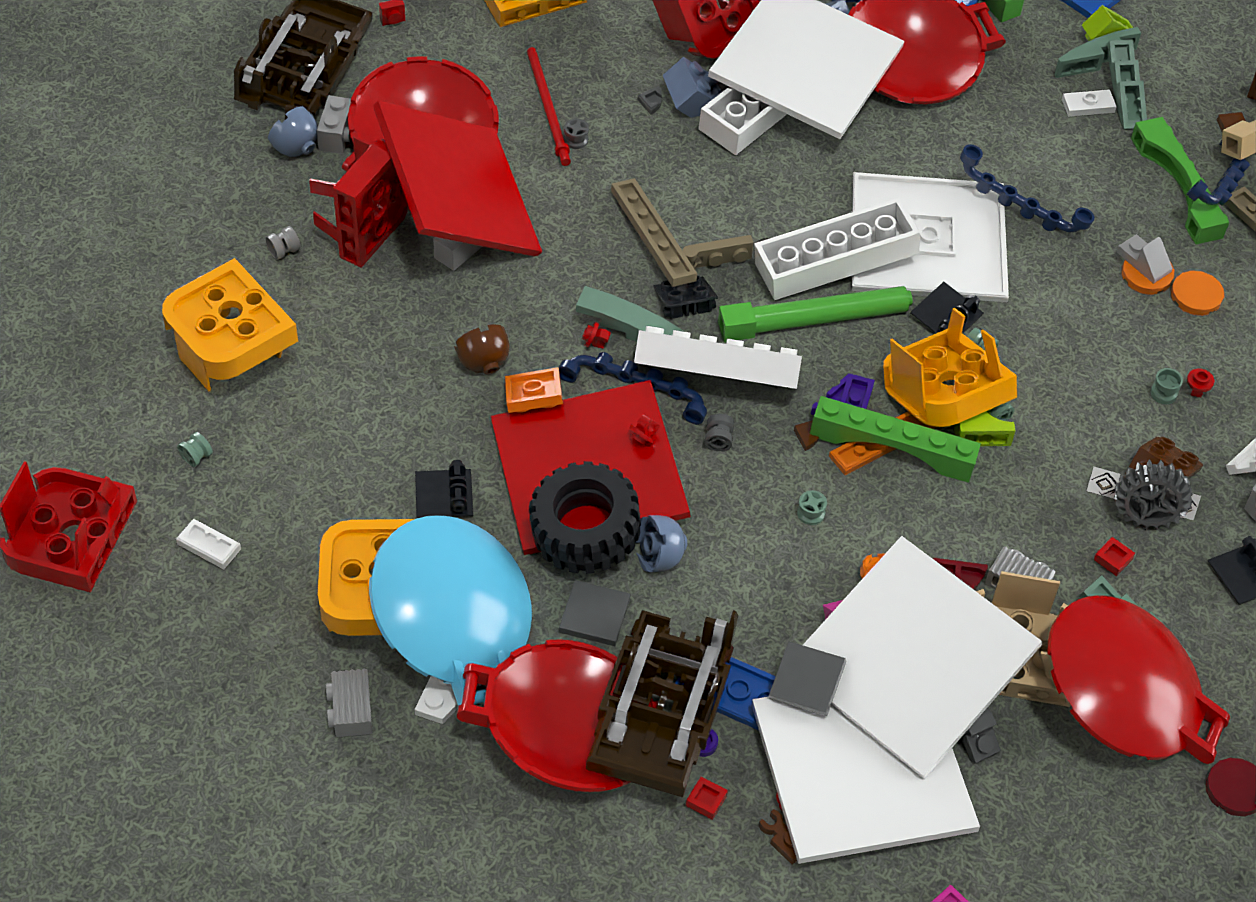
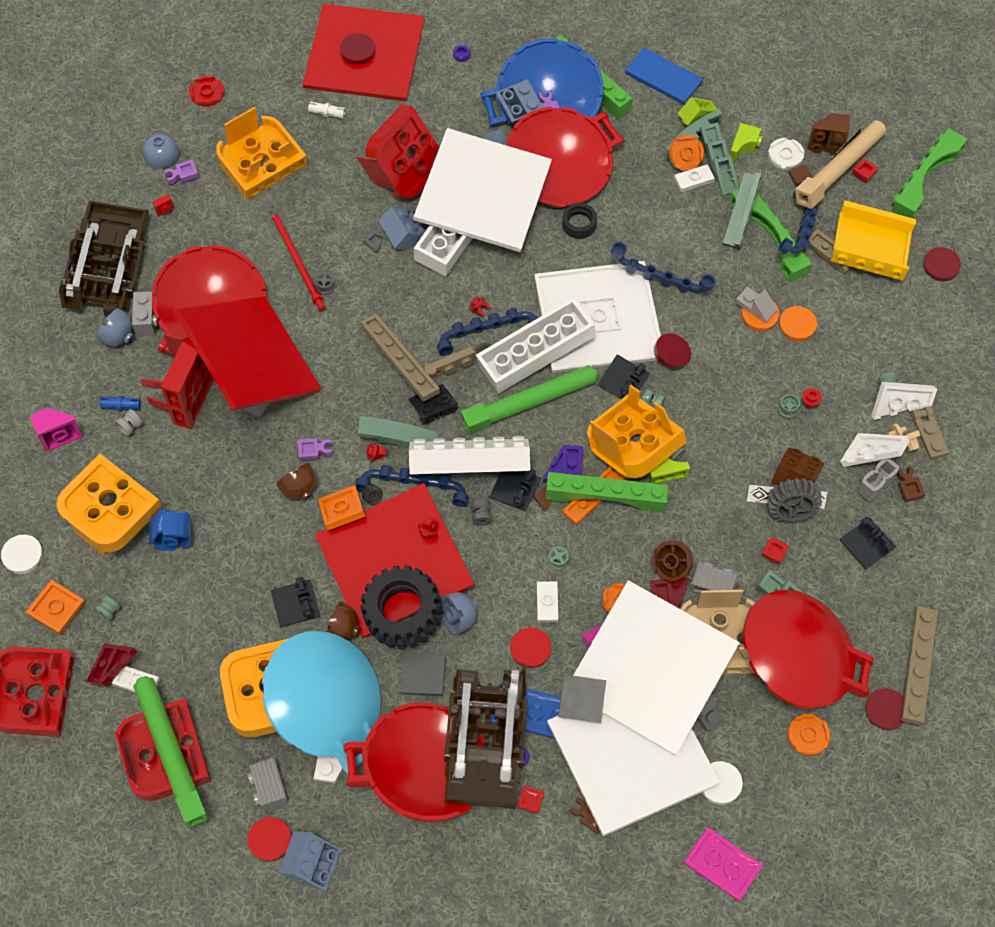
camera: 10 degrees left, 10 degrees up
(103, 367) = (21, 554): none -> white tile
(128, 436) = (55, 607): none -> orange plate
(179, 514) = (110, 663): none -> dark red wing
(187, 228) = (55, 428): none -> dark pink slope
(196, 609) = (148, 777): none -> red piece
(229, 632) = (169, 752): none -> bright green brick
(277, 219) = (120, 403): none -> blue pin
(301, 371) = (170, 530): none -> blue brick
(335, 774) = (269, 839): none -> red tile
(383, 809) = (309, 860): none -> sand blue slope
(503, 521) = (343, 621): none -> reddish brown cylinder
(512, 317) = (310, 448): none -> medium lavender plate
(578, 383) = (372, 494): none -> clear smoke tile
(755, 609) = (530, 647): none -> red tile
(765, 218) = (512, 316): none -> dark blue bar
(771, 191) = (476, 305): none -> red plate
(773, 412) = (516, 488): none -> black hinge
(785, 558) = (547, 602): none -> white plate
(923, 135) = (579, 232): none -> black tyre
(968, 536) = (672, 560): none -> reddish brown cylinder
(990, 840) = (729, 786): none -> white tile
(1020, 292) = (672, 351): none -> dark red tile
(1084, 69) = (686, 152): none -> orange tile
(1119, 806) = (808, 734): none -> orange tile
(1147, 144) = (743, 210): none -> sand green fence
(1166, 71) = (745, 141): none -> lime arch
(1224, 100) = (790, 156): none -> white tile

